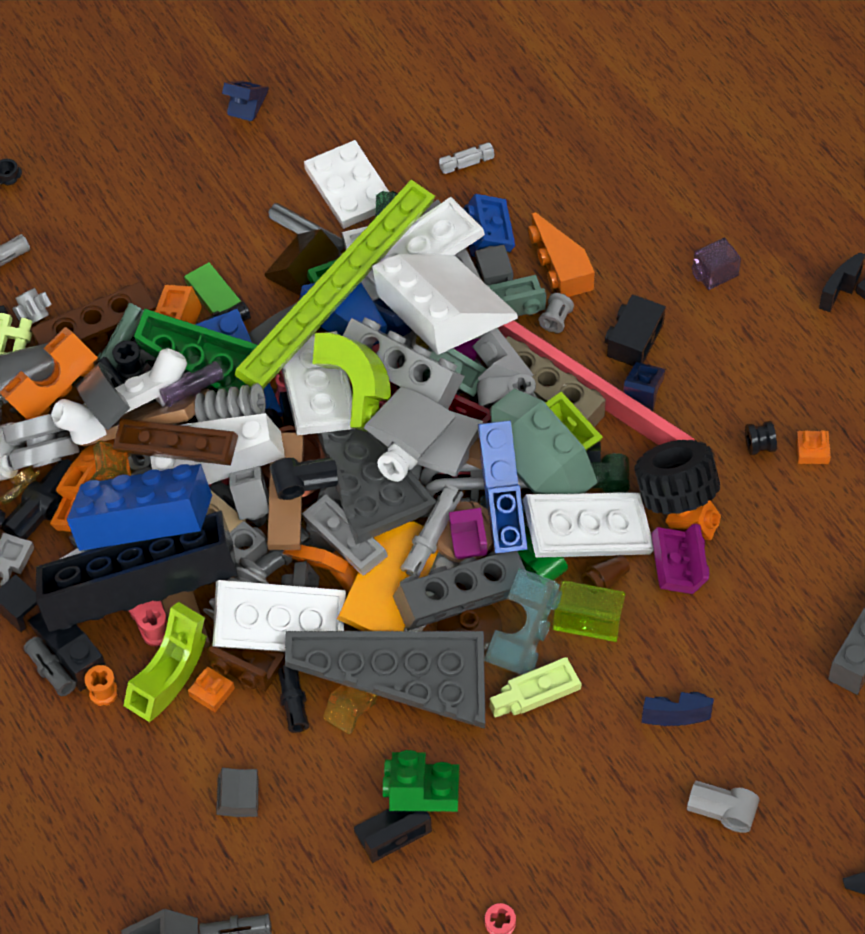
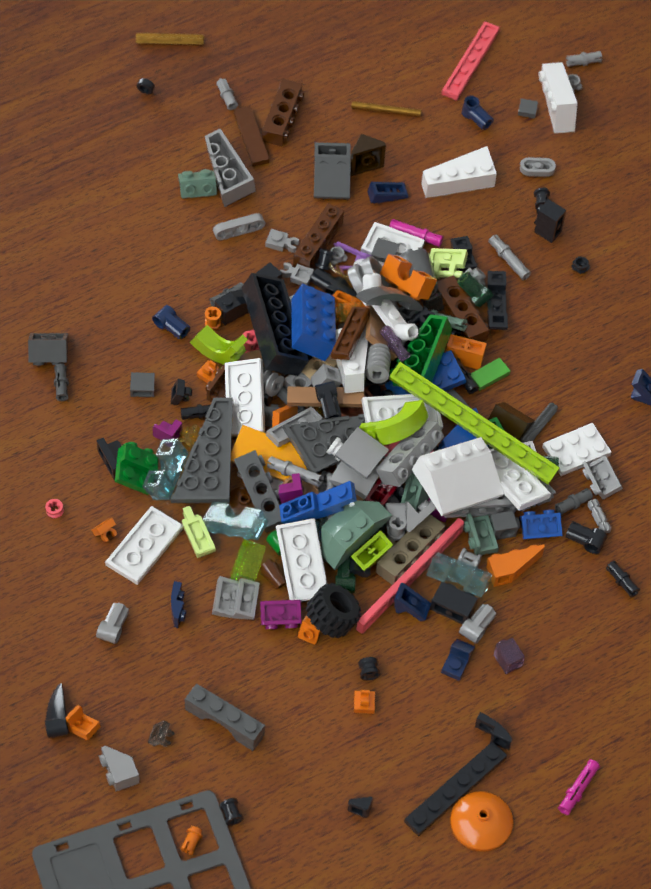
camera: 85 degrees right, 0 degrees up
(59, 299) = (478, 292): none -> clear green piece
(78, 282) = (496, 305): none -> black slope
(101, 759) = (168, 319): none -> dark blue piece
(257, 730) = (180, 392): none -> black tile
(337, 745) = (167, 431): none -> magenta panel
(401, 149) = (602, 476): none -> light grey bracket
(420, 734) = (162, 482): none -> clear light blue arch
(443, 184) = (573, 501): none -> dark grey pin
(507, 167) = (591, 539): none -> black piece
(539, 832) = (103, 528): none -> orange tile
(562, 771) = (144, 545): none -> white tile
(572, 131) = (622, 579): none -> black pin
(595, 302) = (449, 569): none -> clear light blue arch
(652, 628) = (235, 598): none -> light grey slope
(679, 304) = (475, 627): none -> light grey piece
(719, 327) = (457, 659): none -> dark blue slope

